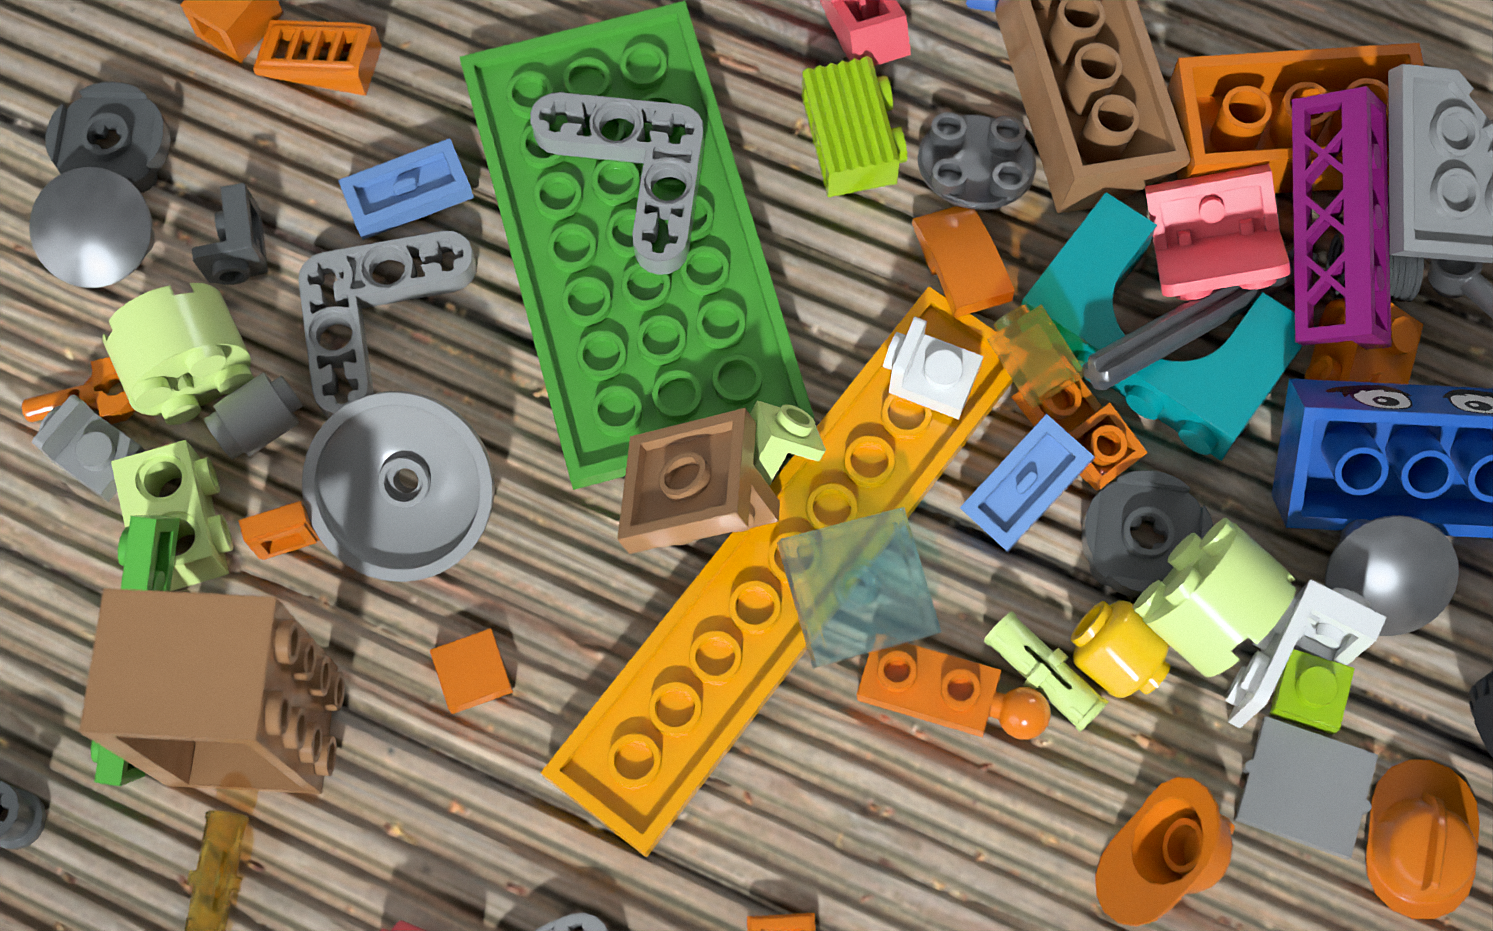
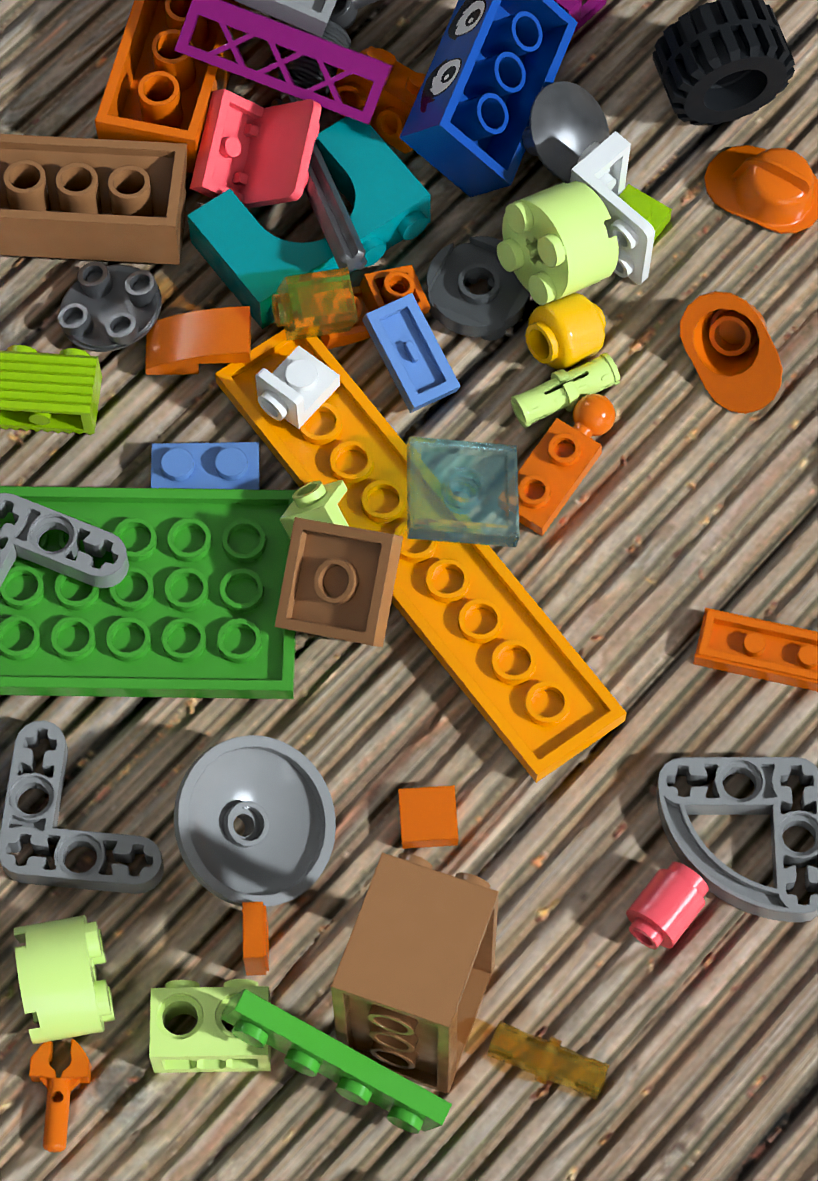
camera: 75 degrees left, 5 degrees down
(84, 445) = (116, 1093): light grey bracket -> none
(254, 415) = (136, 940): light grey brick -> none
(817, 319) = (206, 465): none -> medium blue plate
(1306, 787) = (705, 248): light grey piece -> none

